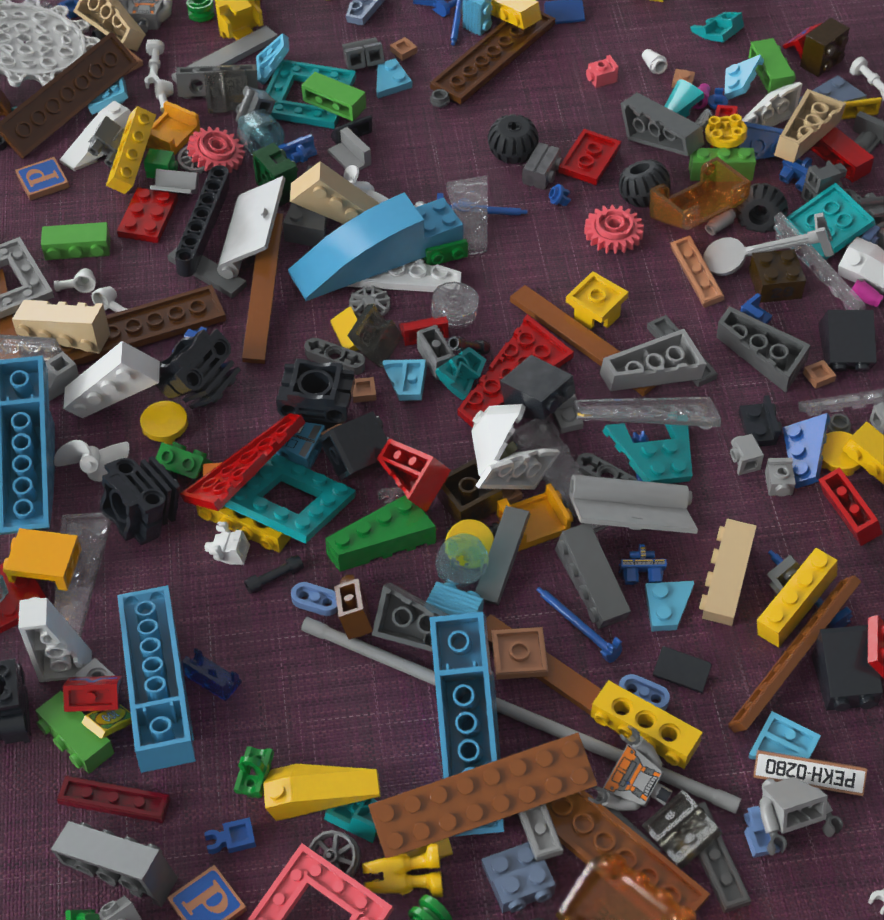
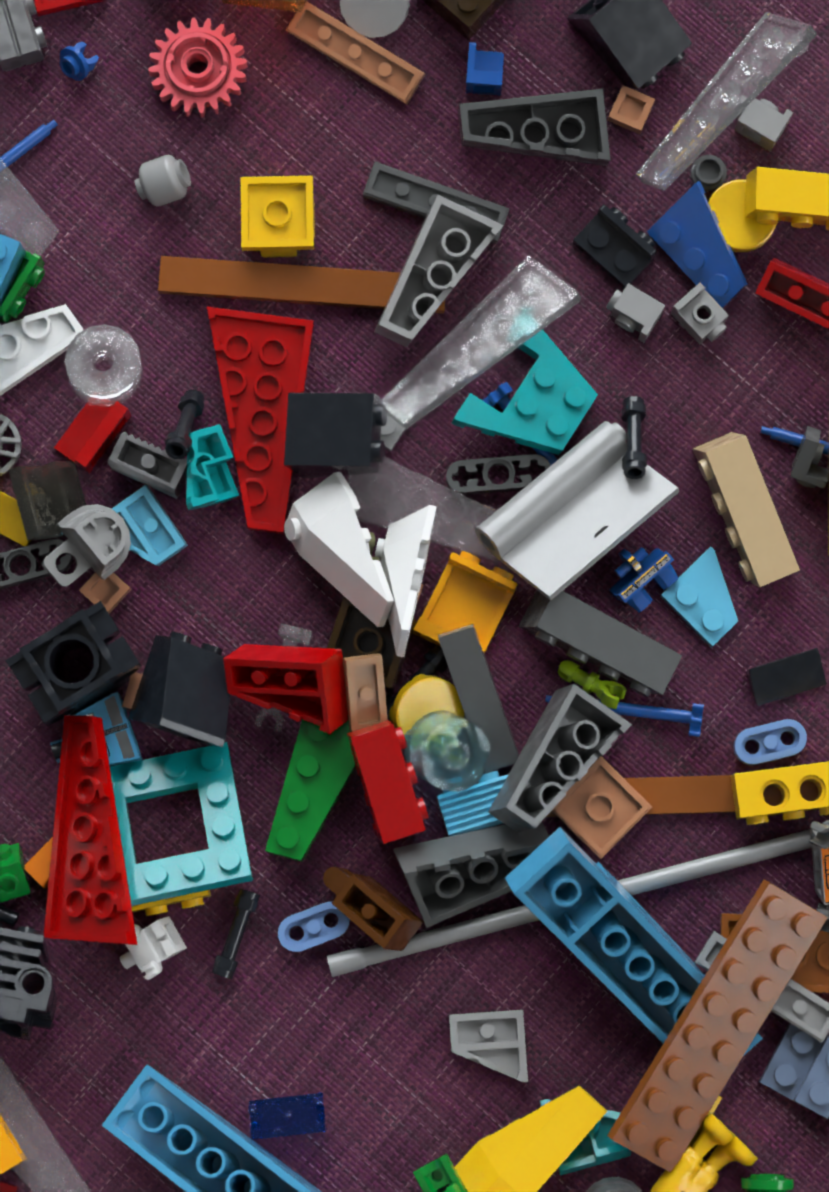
camera: 40 degrees left, 30 degrees up
(353, 721) = (492, 1040): none -> light grey wing
(380, 359) = (95, 540): none -> light grey container
(416, 547) = (387, 781): none -> red wedge
(444, 500) = (365, 690): none -> medium nougat plate
(520, 603) = (556, 756): none -> dark grey wedge
(555, 257) = (163, 180): none -> light grey head
(570, 596) = (590, 682): none -> lime piece
(686, 505) = (634, 461): none -> black bar

